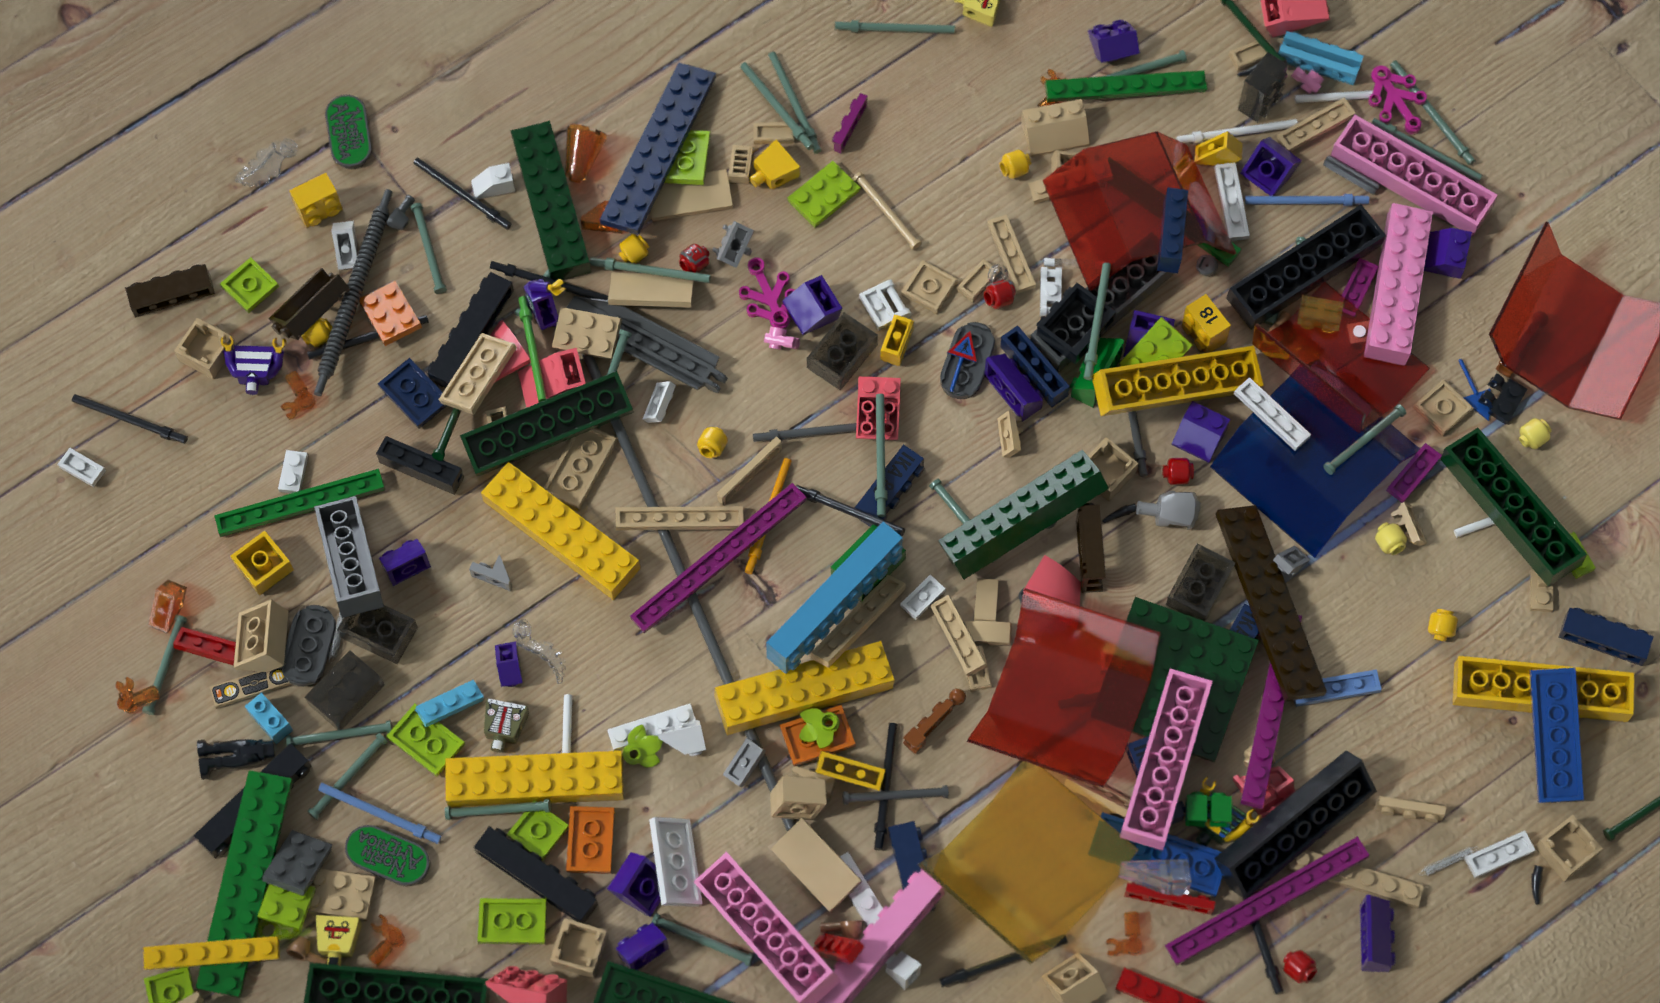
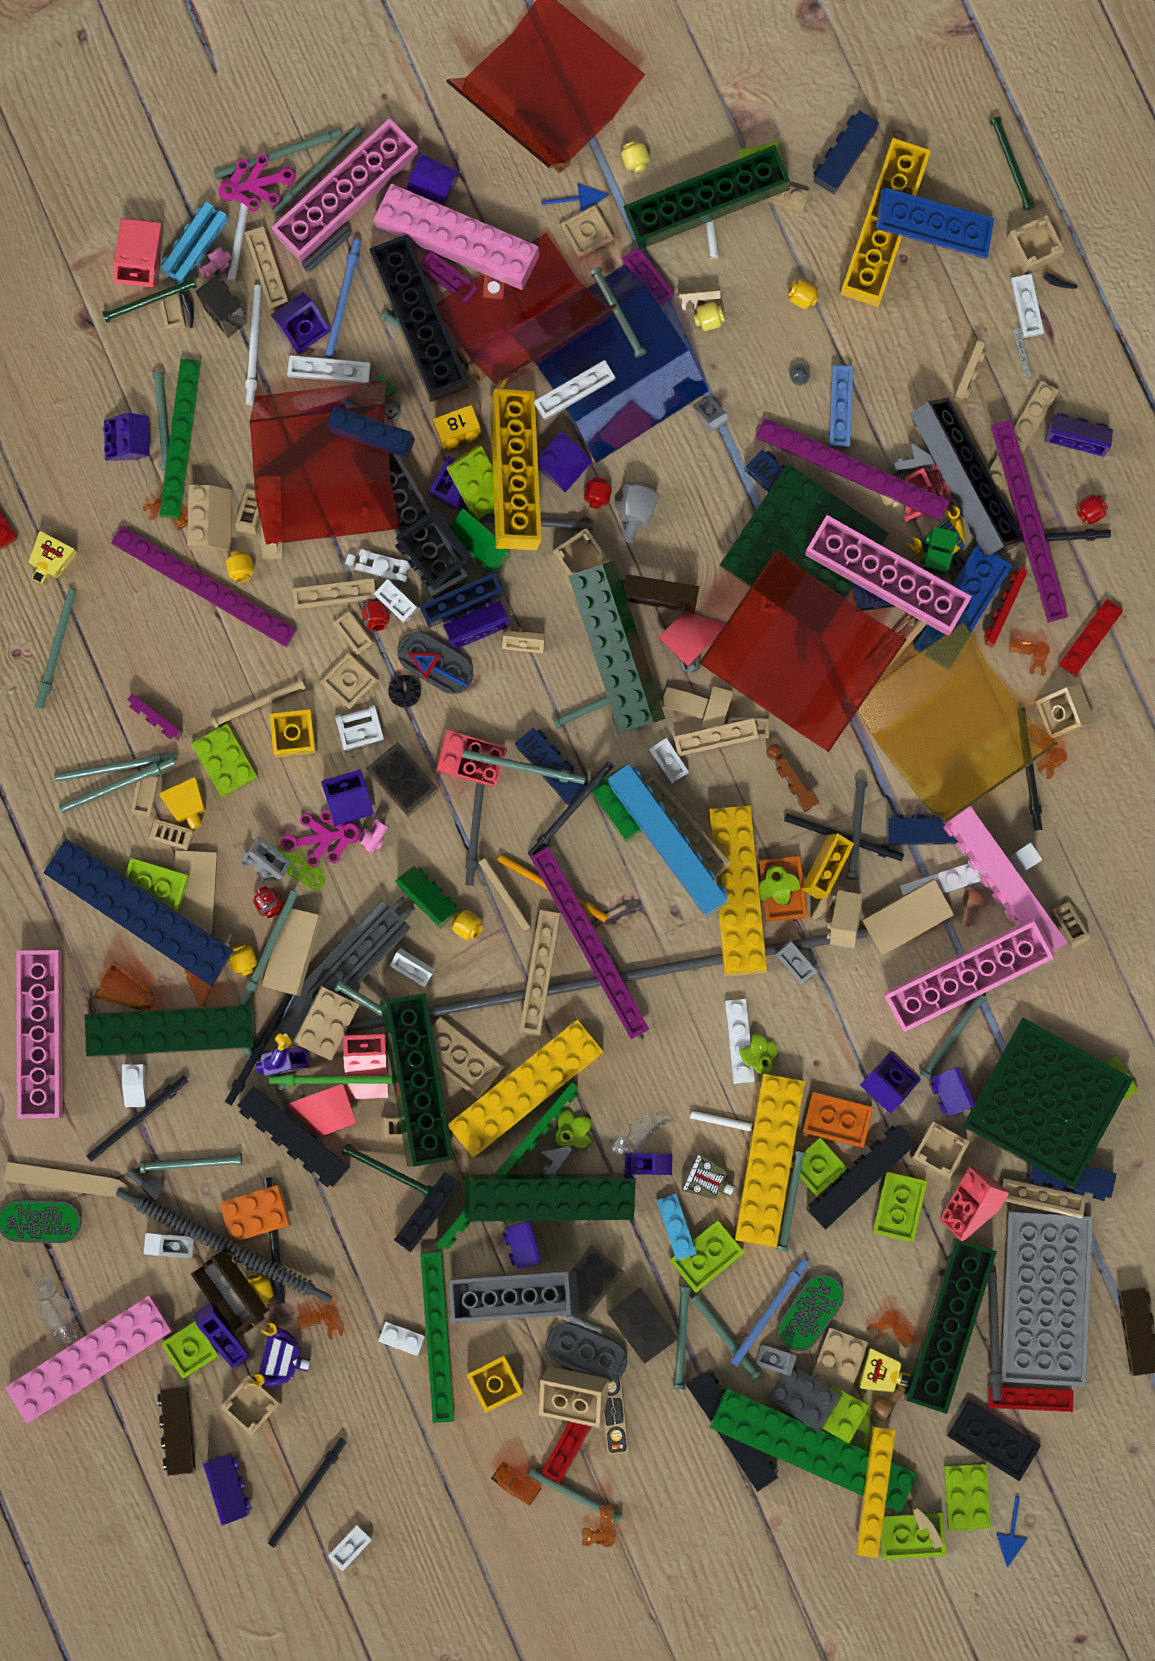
camera: 80 degrees left, 15 degrees up
(120, 341) = (227, 1488): none -> dark purple slope
(226, 200) = (89, 1359): none -> bright pink brick
(245, 753) = (681, 1429): black piece -> none
(268, 718) = (653, 1402): medium azure brick -> none
(269, 301) = (220, 1336): none -> dark purple slope
(316, 200) = (116, 1266): yellow brick -> none
(332, 829) = (776, 1360): none -> light grey slope
(391, 143) = (63, 1179): none -> tan piece
(413, 393) = (346, 1205): dark blue plate -> none
(453, 568) = (549, 1197): none -> dark green brick
(475, 525) = (516, 1157): none -> green plate
(477, 373) = (346, 1137): tan tile -> none
(523, 89) = (39, 1034): none -> bright pink brick
(530, 588) = (575, 1128): none -> lime plate
(675, 861) = (878, 1045): white plate -> none
(684, 737) = (759, 1013): white slope -> none
(731, 396) = (427, 896): none -> green slope
(734, 289) = (313, 872): none -> clear neon green beam
(838, 948) = (999, 913): red plate -> none
(863, 244) = (292, 733): none -> yellow brick
(897, 340) = (403, 724): yellow brick -> none
(927, 345) = (412, 696): none -> black gear
(988, 141) = (204, 586): none -> magenta plate
(997, 272) = (354, 612): clear tile -> none
(1019, 308) = (396, 600): none -> white hinge
(1024, 985) = (1056, 758): none -> clear orange bar
(1091, 357) = (480, 543): sand green bar -> none
(1123, 511) = (623, 554): black helmet -> none
(1163, 876) = (991, 606): clear slope -> none
(1200, 583) = (716, 501): clear smoke brick -> none
(1219, 150) = (273, 367): yellow slope -> none
(1270, 603) = (749, 443): dark brown plate -> none
(1292, 765) = (918, 460): none -> light grey slope
(1320, 313) = (470, 317): clear yellow brick -> none
(1358, 641) = (799, 374): none -> dark grey tile
(1507, 400) = (595, 171): black plate -> none

